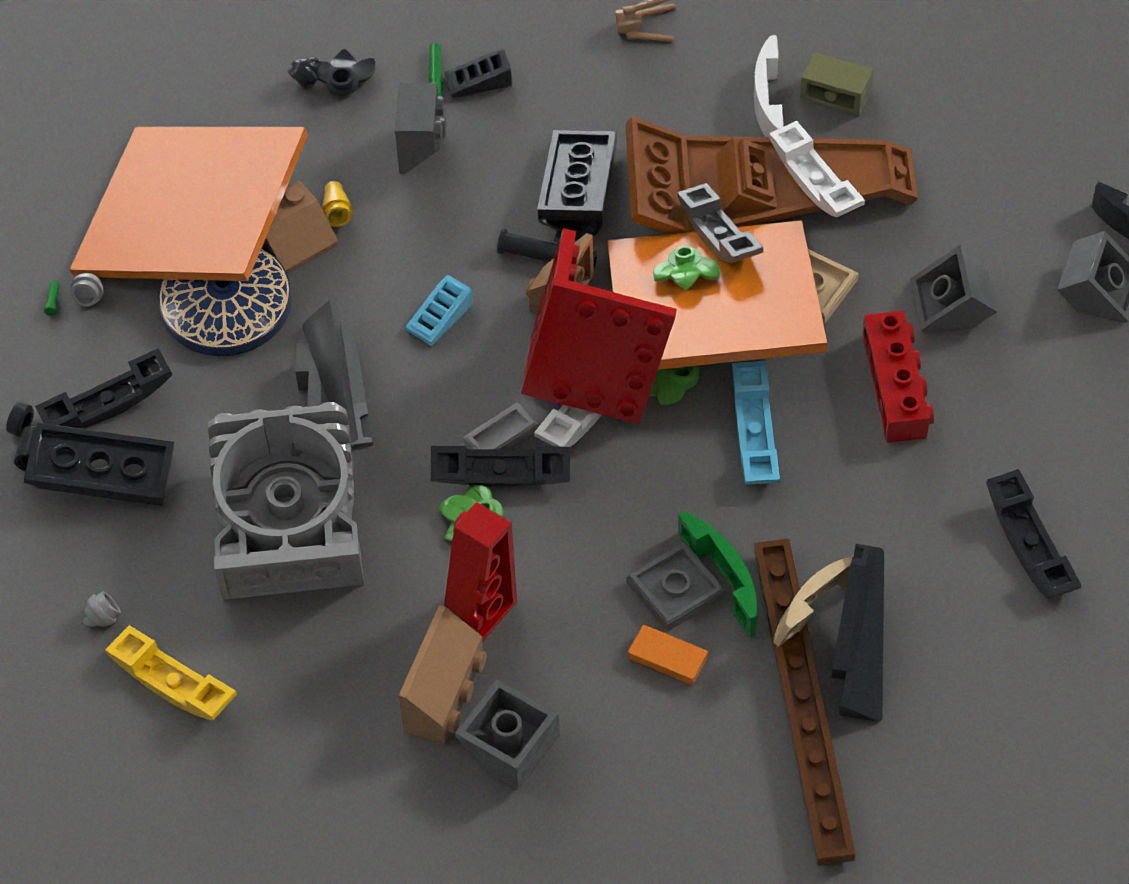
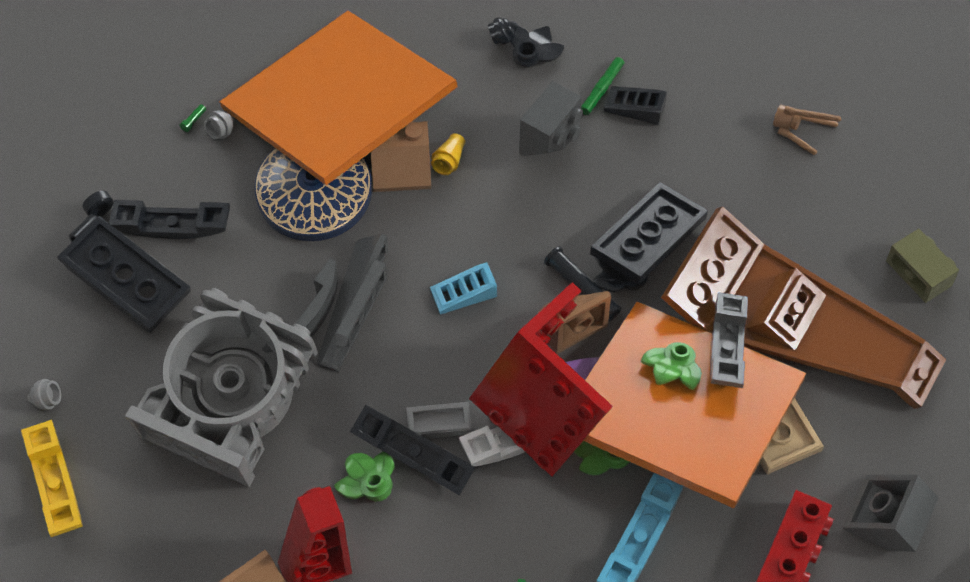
camera: 30 degrees right, 5 degrees up
(768, 116) = (873, 219): white slope -> none
(812, 173) = (842, 337): white slope -> none

